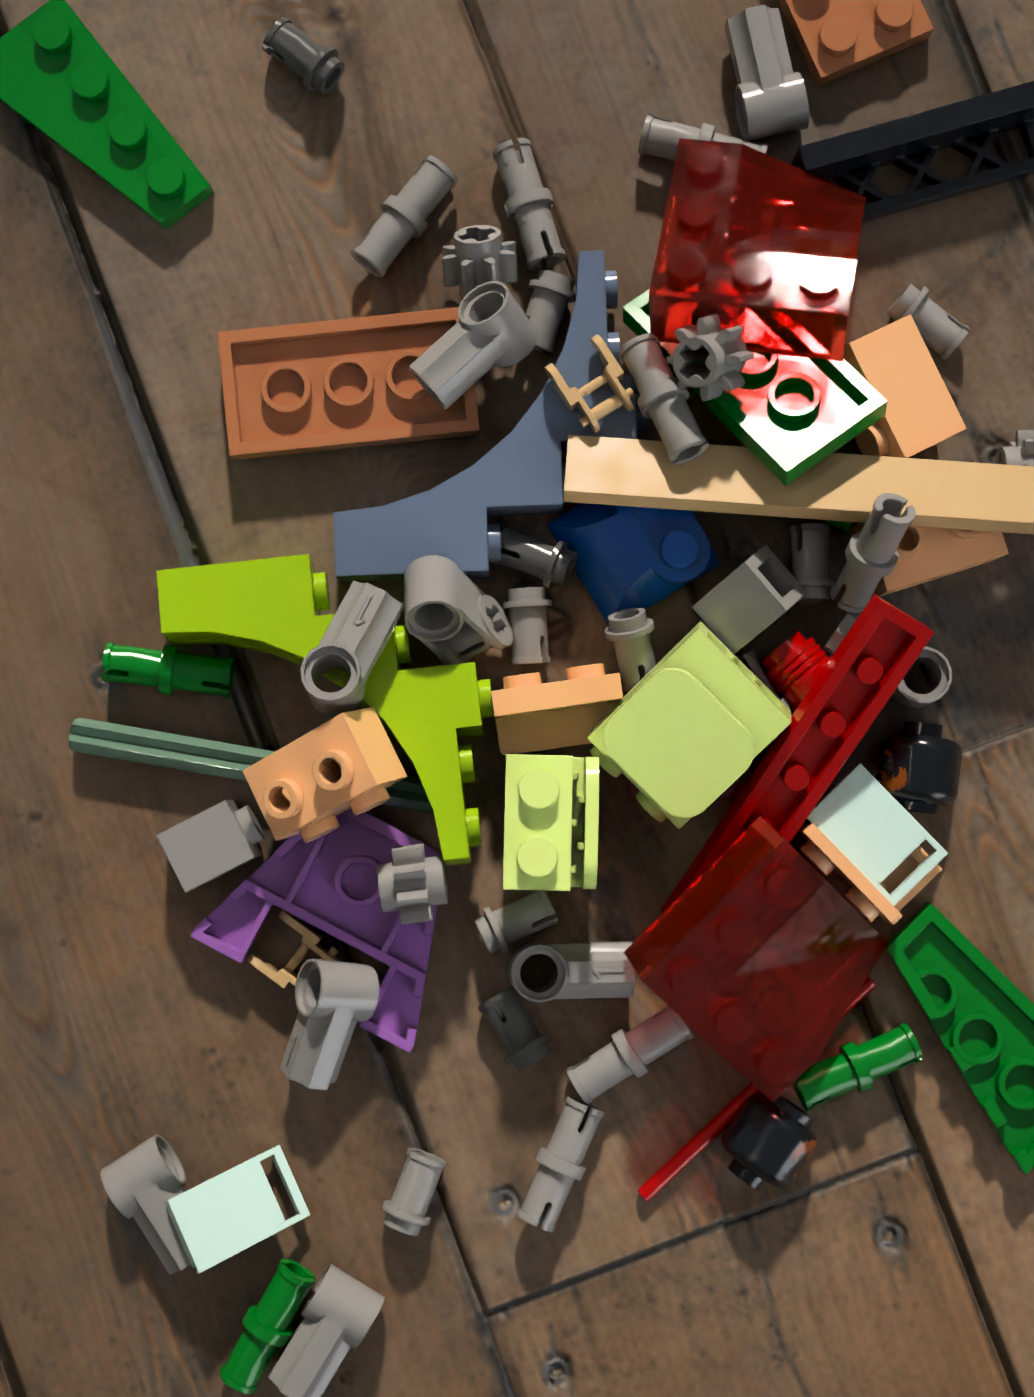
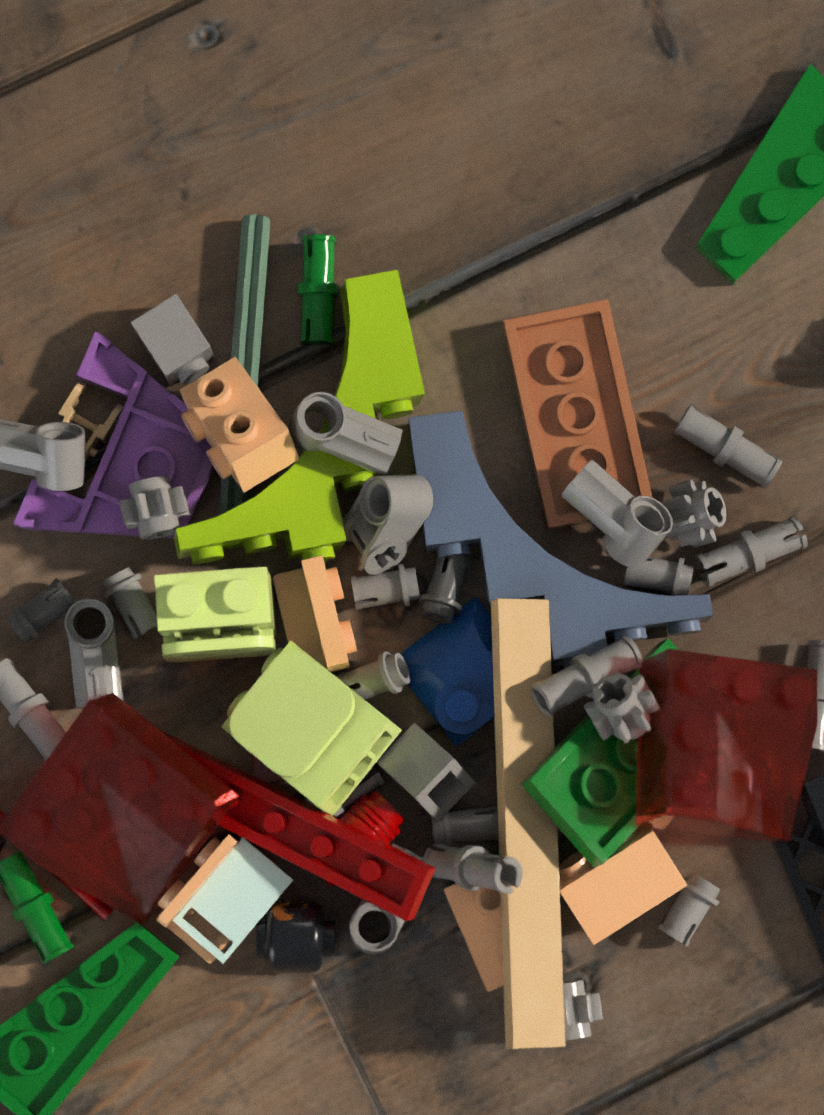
camera: 85 degrees right, 5 degrees down
(612, 375) = (603, 630): tan piece -> none

